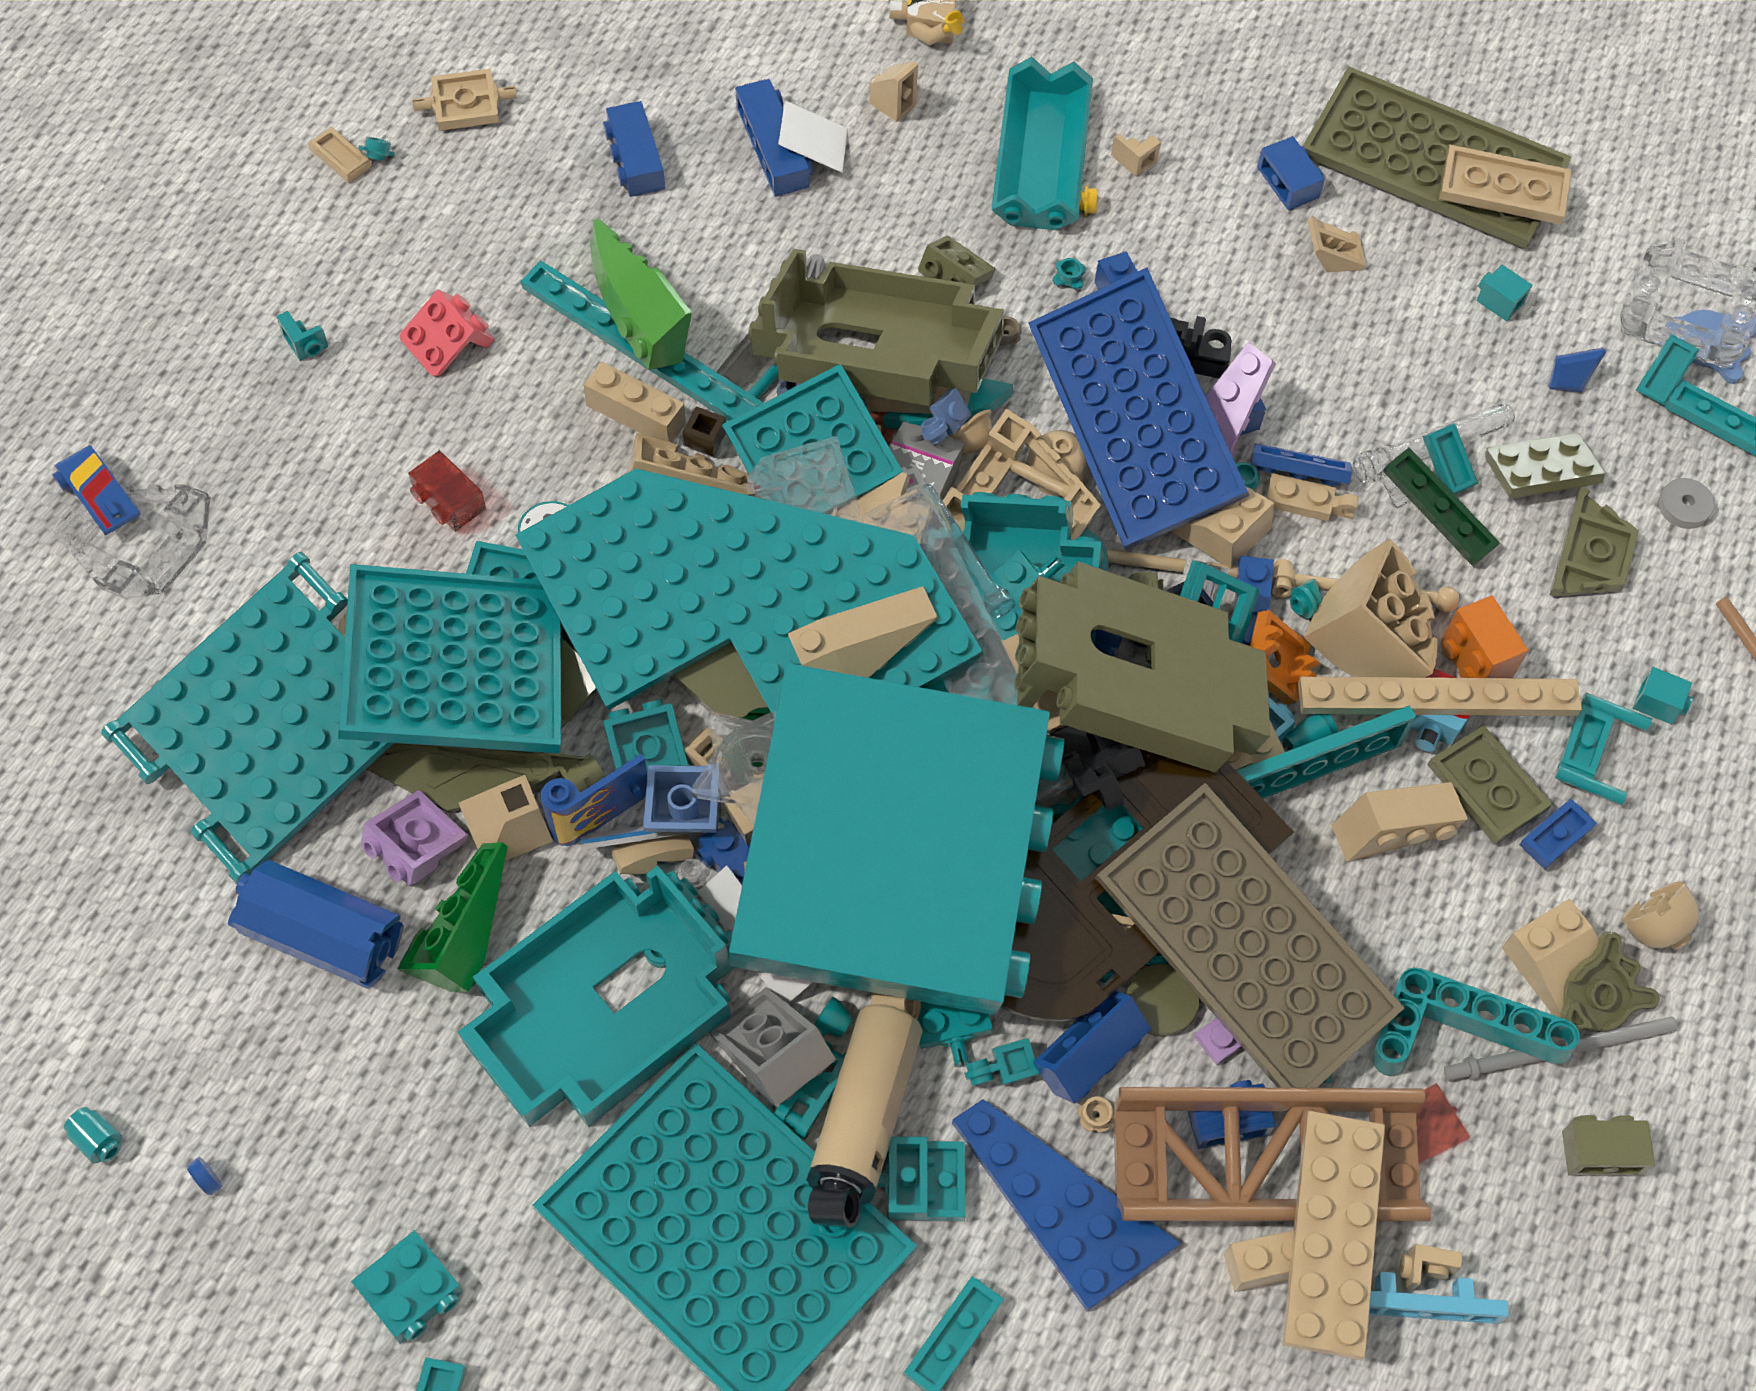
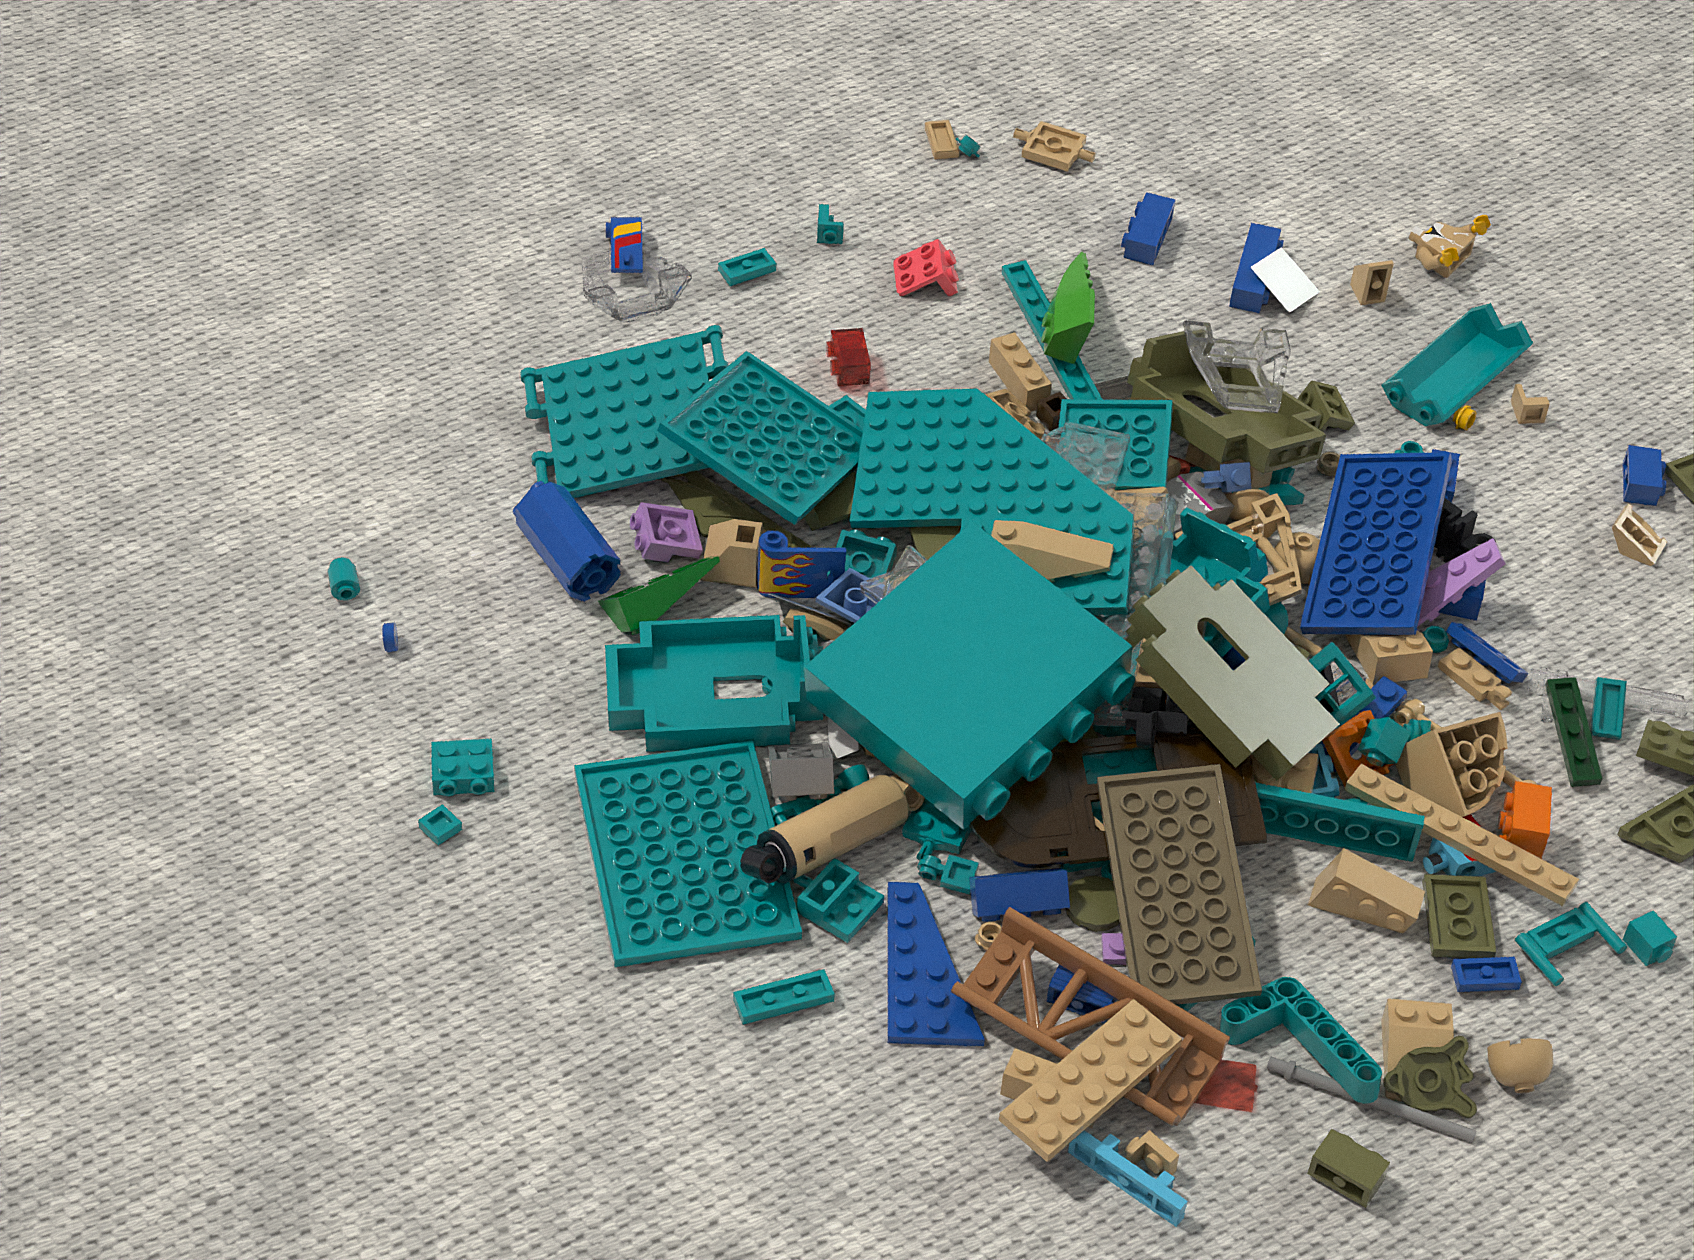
camera: 35 degrees right, 15 degrees down
(250, 438) = (747, 266): none -> teal plate
(868, 240) = (1211, 352): none -> clear windscreen
(1302, 637) = (1383, 741): none -> teal brick

